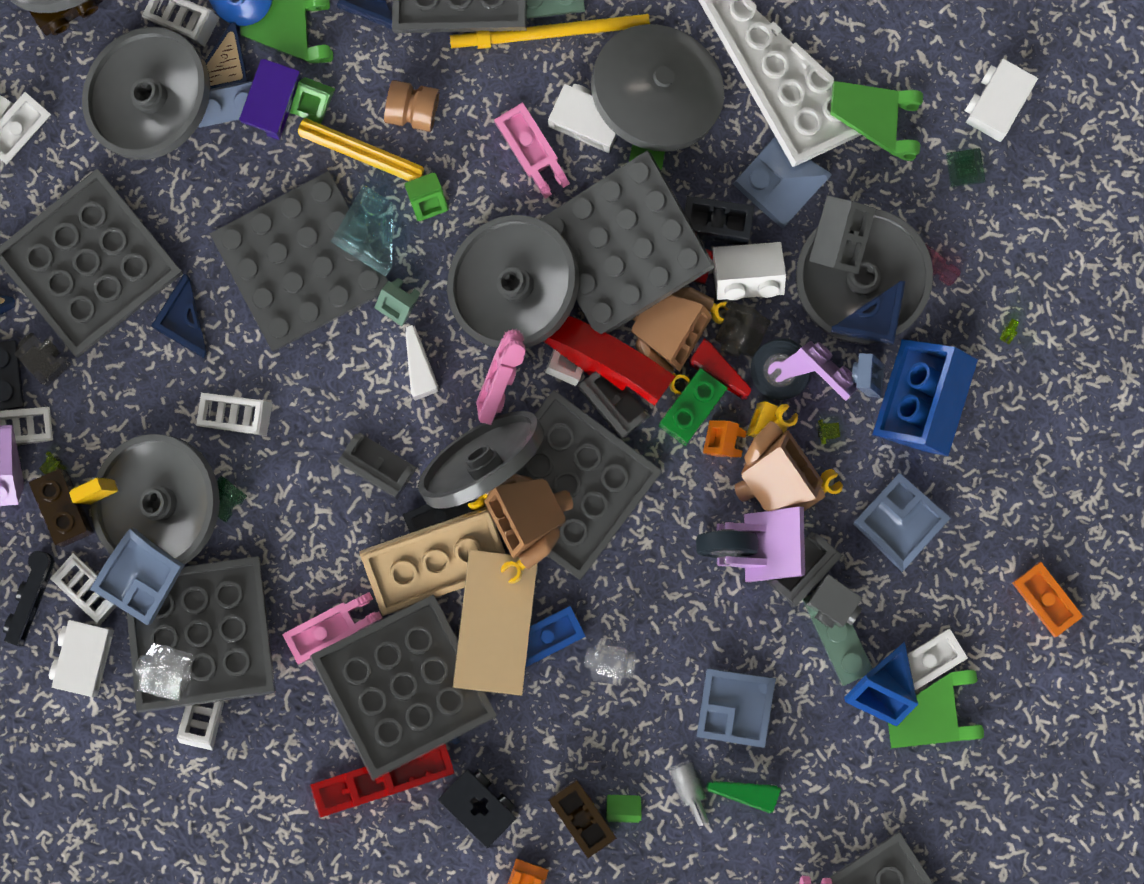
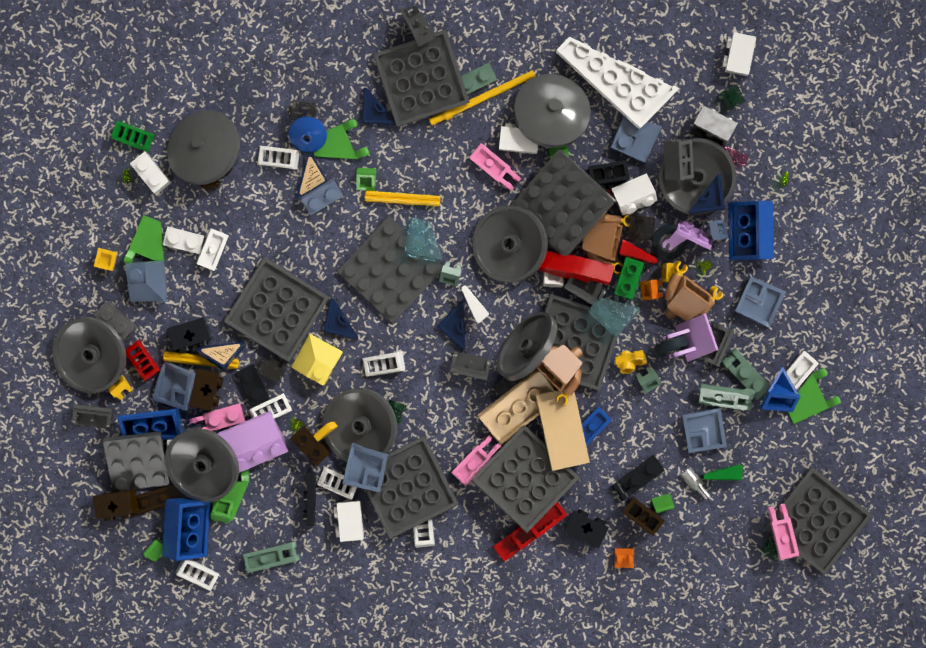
camera: 20 degrees left, 5 degrees up
(124, 369) = (317, 359): none -> light yellow slope
(146, 93) = (276, 207): dark grey dish -> none
(164, 671) = (398, 514): clear brick -> none
(270, 98) = (344, 187): dark purple panel -> none
(373, 390) = (454, 325): none -> dark blue tile
(411, 105) = (422, 165): medium nougat wheel -> none
(426, 196) = (446, 211): bright green slope -> none
(500, 374) = (520, 297): bright pink hinge -> none
(596, 750) = (638, 477): none -> black plate
(610, 661) = (630, 428): clear head -> none
(645, 458) = (613, 315): none -> clear light blue wing
(645, 545) = (628, 361): none -> yellow plate
(670, 592) = (649, 381): none -> sand green tile
(792, 663) = (726, 397): none -> sand green plate
(834, 603) = (738, 358): dark grey brick -> none
(875, 114) = (673, 85): bright green flag -> none
(919, 202) = (714, 126): none -> brick
(1047, 599) = (851, 317): orange plate -> none

